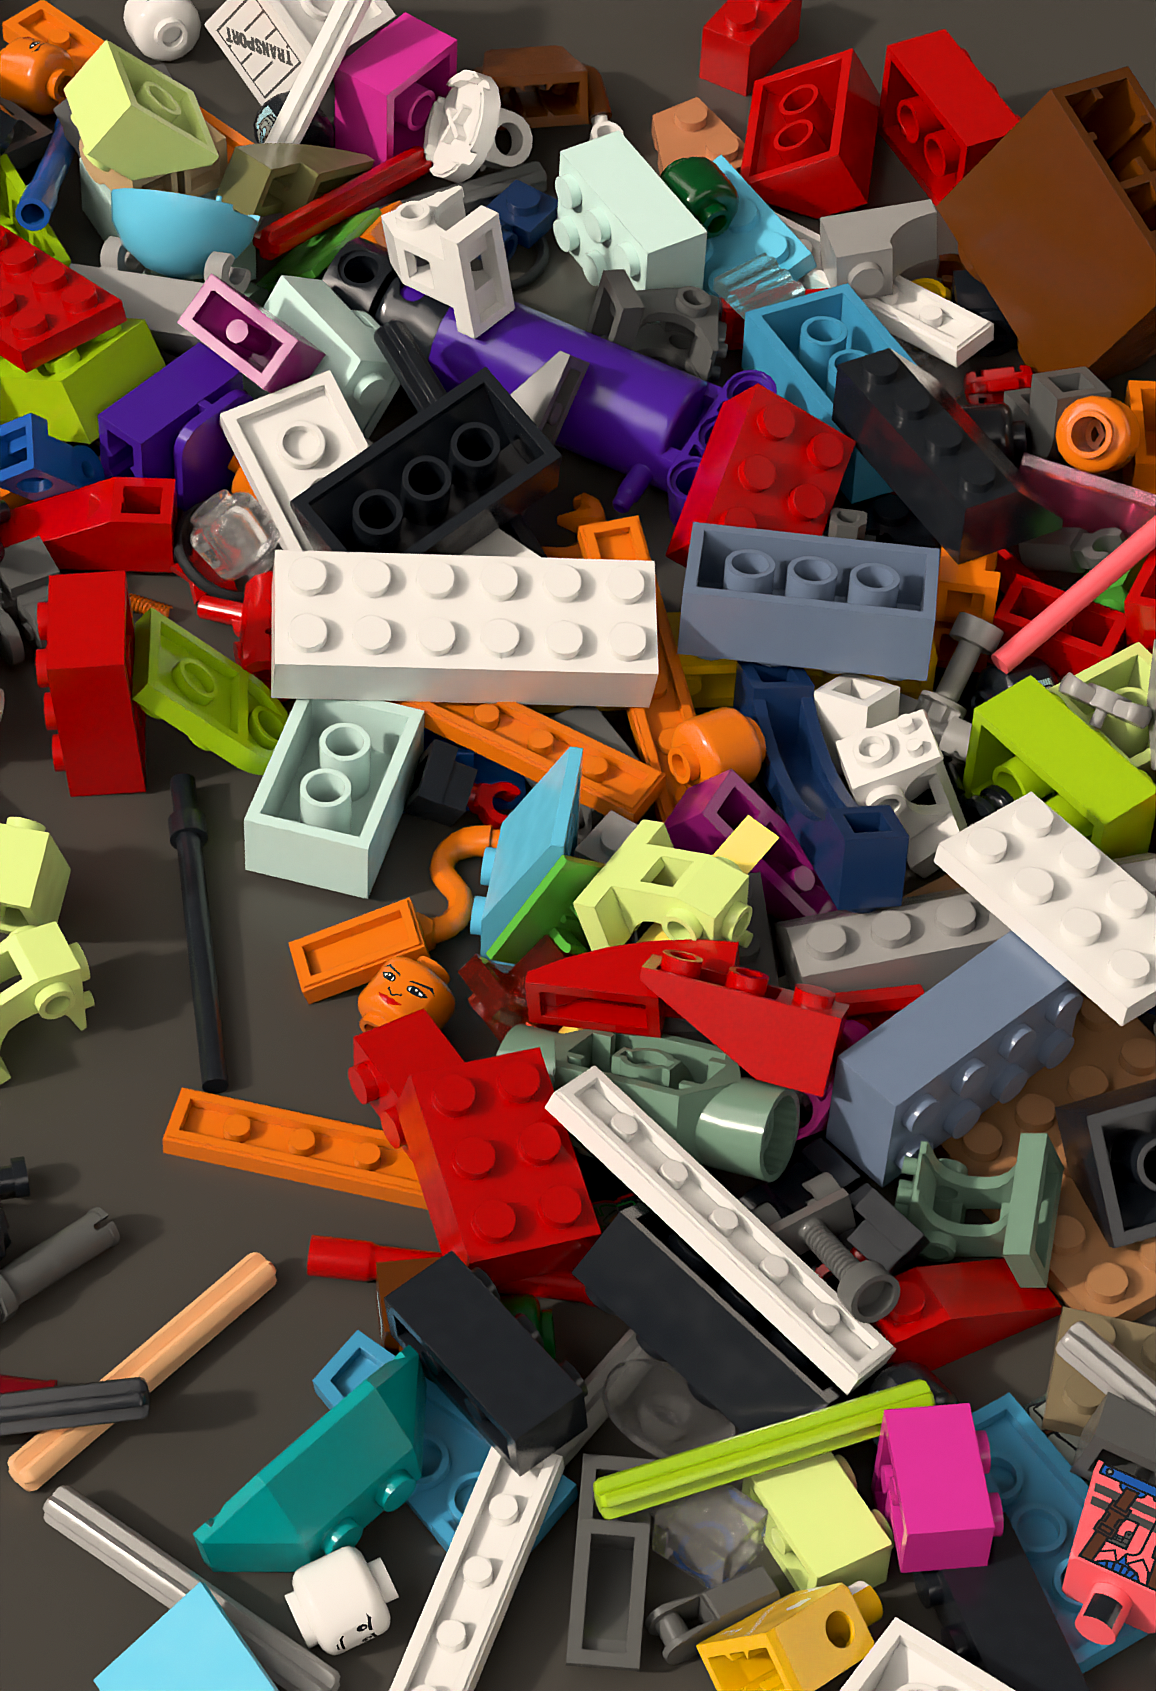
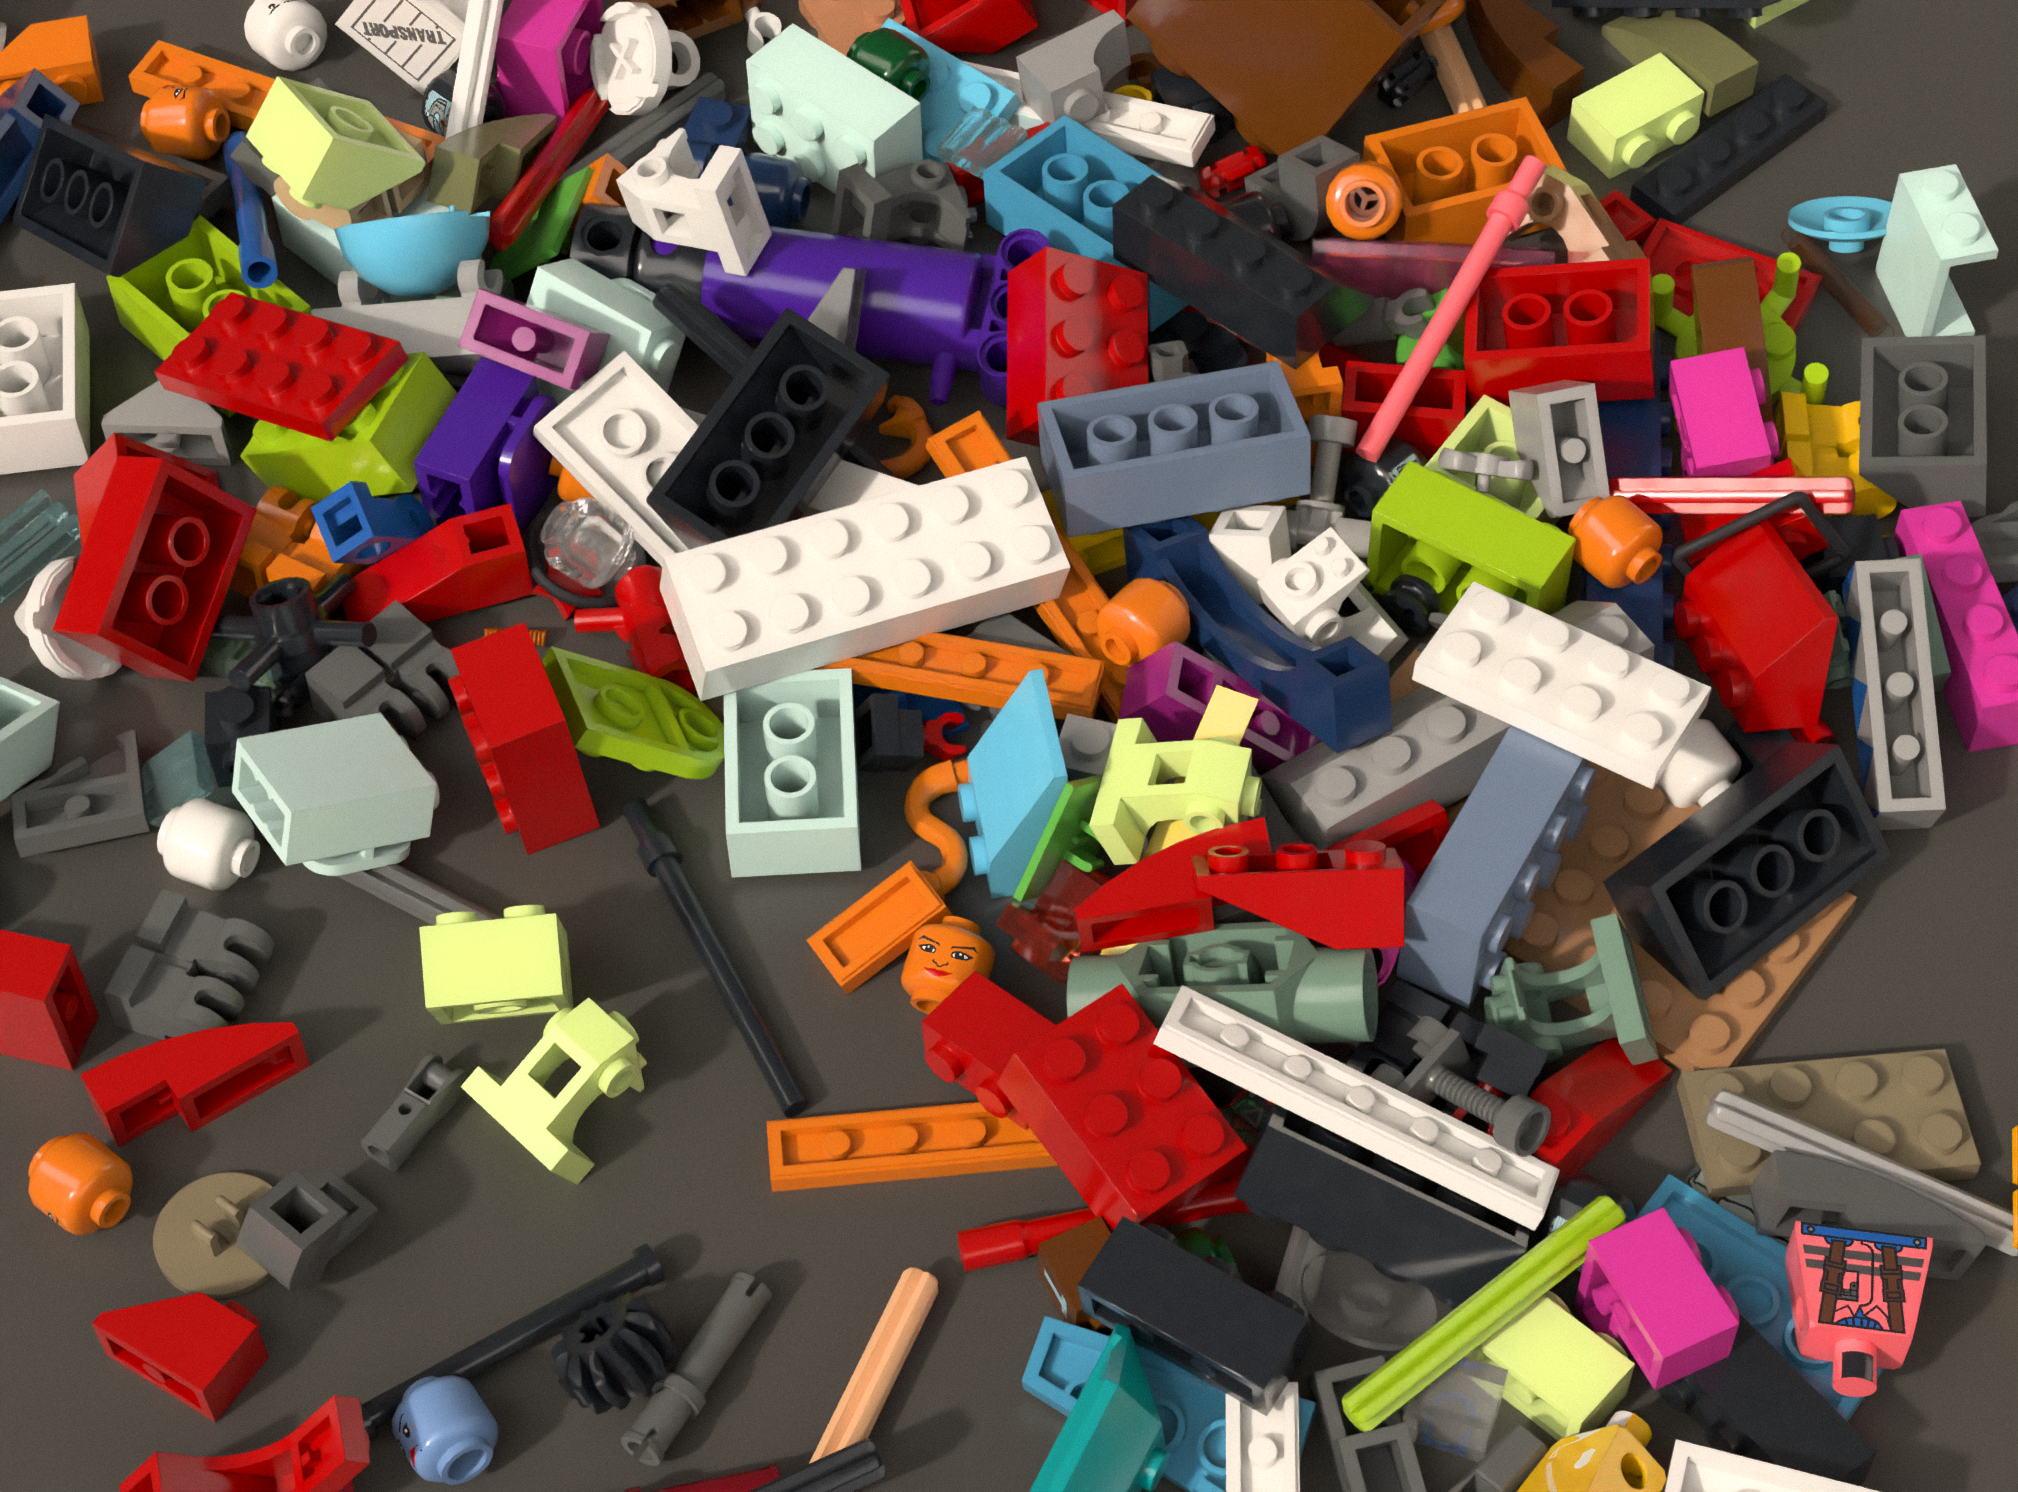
camera: 15 degrees left, 5 degrees up
(546, 278) = (780, 188): none -> dark blue head

